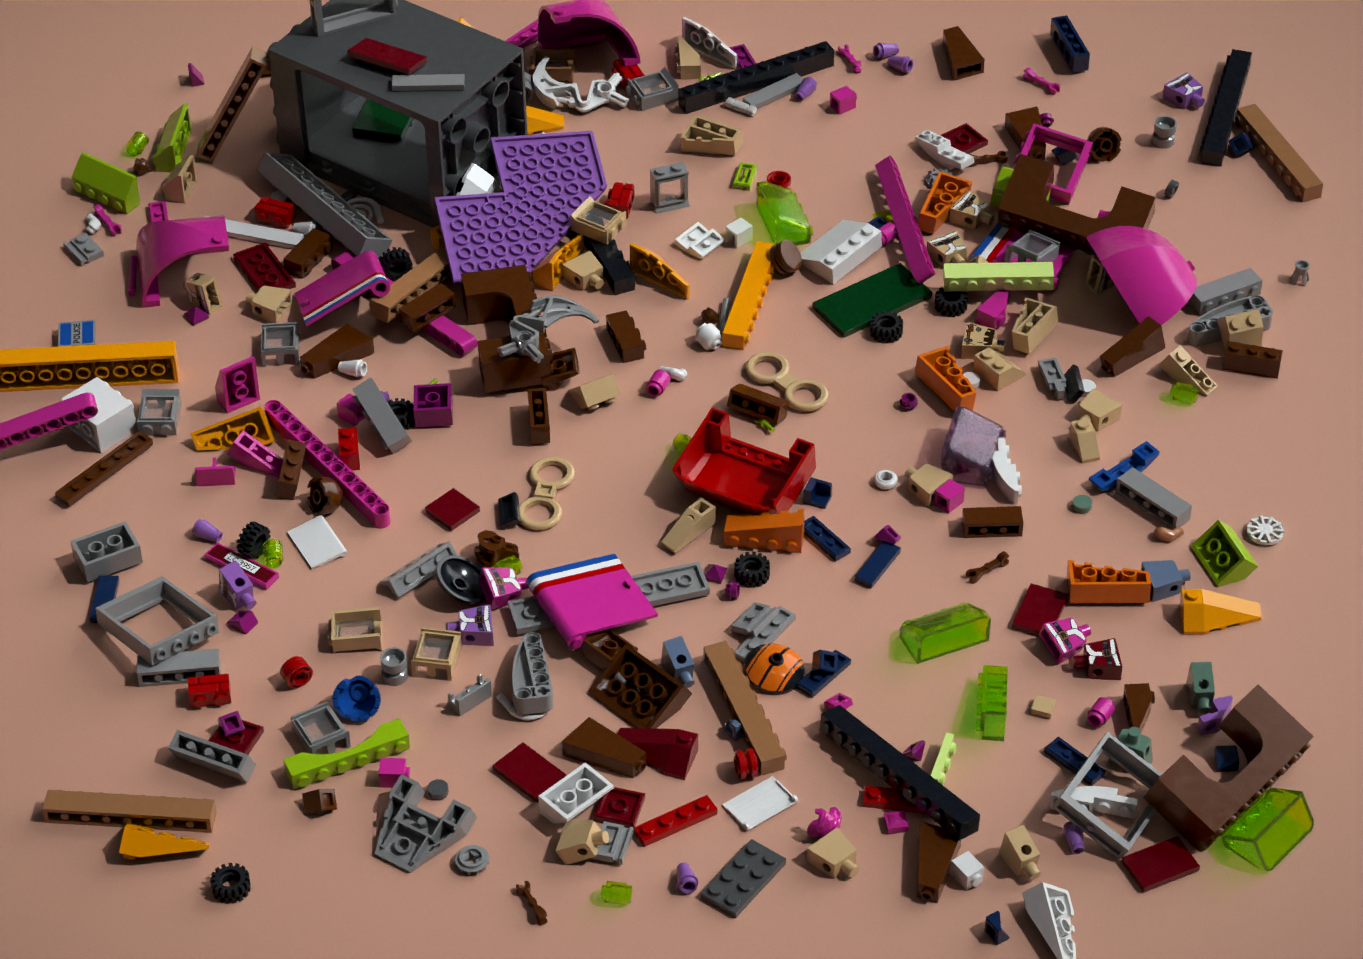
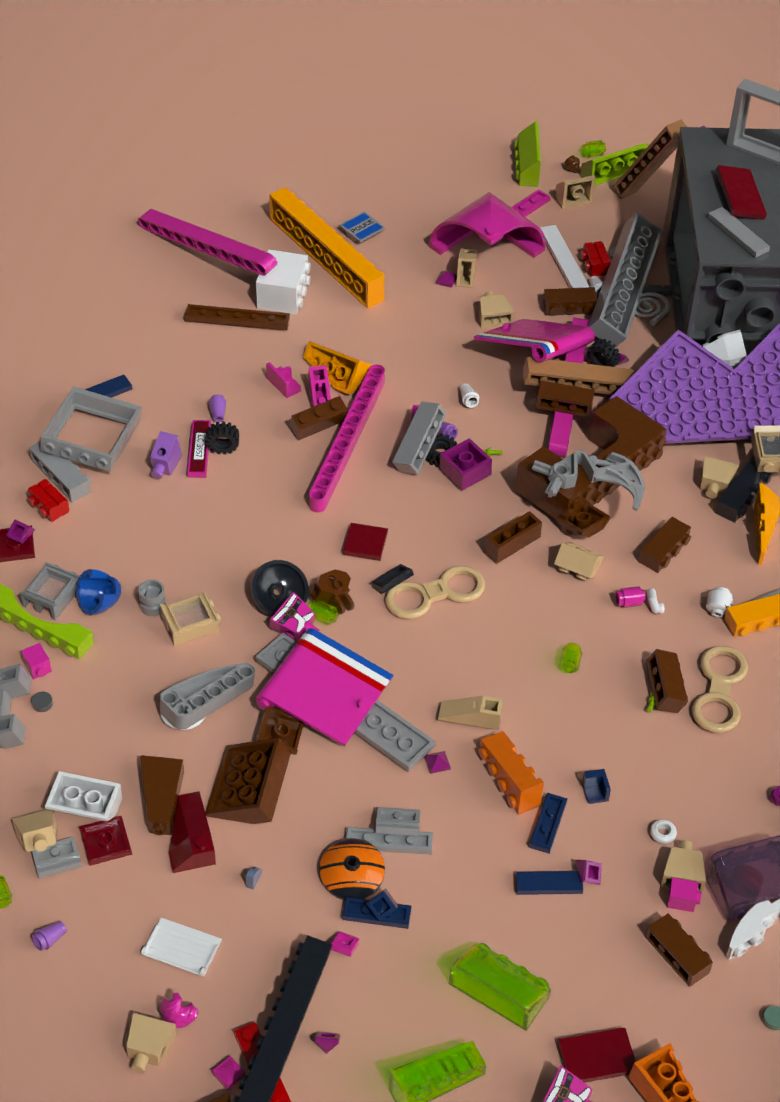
camera: 55 degrees right, 5 degrees up
(83, 249) = (458, 184): light grey plate -> none
(94, 223) = (488, 174): white arm -> none
(106, 219) = (496, 184): dark pink piece -> none
(106, 551) = (146, 363): light grey brick -> none
(159, 411) = (319, 314): light grey window -> none
(237, 385) = (378, 337): dark pink slope -> none
(243, 621) = (141, 482): magenta slope -> none
(263, 267) = (529, 288): dark red tile -> none
(273, 553) = (224, 458): clear neon green brick -> none
(280, 340) = (456, 339): light grey window -> none
(296, 672) = (102, 540): red wheel -> none
(317, 542) = (261, 479): white piece -> none
(324, 495) = (308, 454): reddish brown cylinder -> none
(342, 345) = (482, 375): reddish brown slope -> none
(349, 447) = (373, 441): red brick -> none
(355, 629) = (178, 553): tan window -> none
(417, 570) = (261, 553): light grey fence -> none
(471, 696) = (159, 667): light grey hinge -> none
(475, 626) = (240, 626): medium lavender torso -> none
(528, 771) = (103, 752): dark red tile -> none
(549, 270) = (692, 453): light orange wedge -> none
(675, 820) = (116, 891): red plate -> none
(678, 661) = (296, 790): sand blue torso -> none
(709, 316) = (745, 589): reddish brown plate -> none
(732, 590) = (424, 786): magenta plate -> none
(740, 472) = (563, 711): red slope -> none
(743, 707) = (282, 872): medium nougat brick -> none
(743, 878) = (79, 982): dark grey plate -> none
(746, 763) = (212, 908): red wheel -> none
(752, 577) = (464, 777): black tyre -> none
(943, 760) = (326, 1072): yellowish green plate -> none
(977, 573) = (637, 984): reddish brown piece -> none

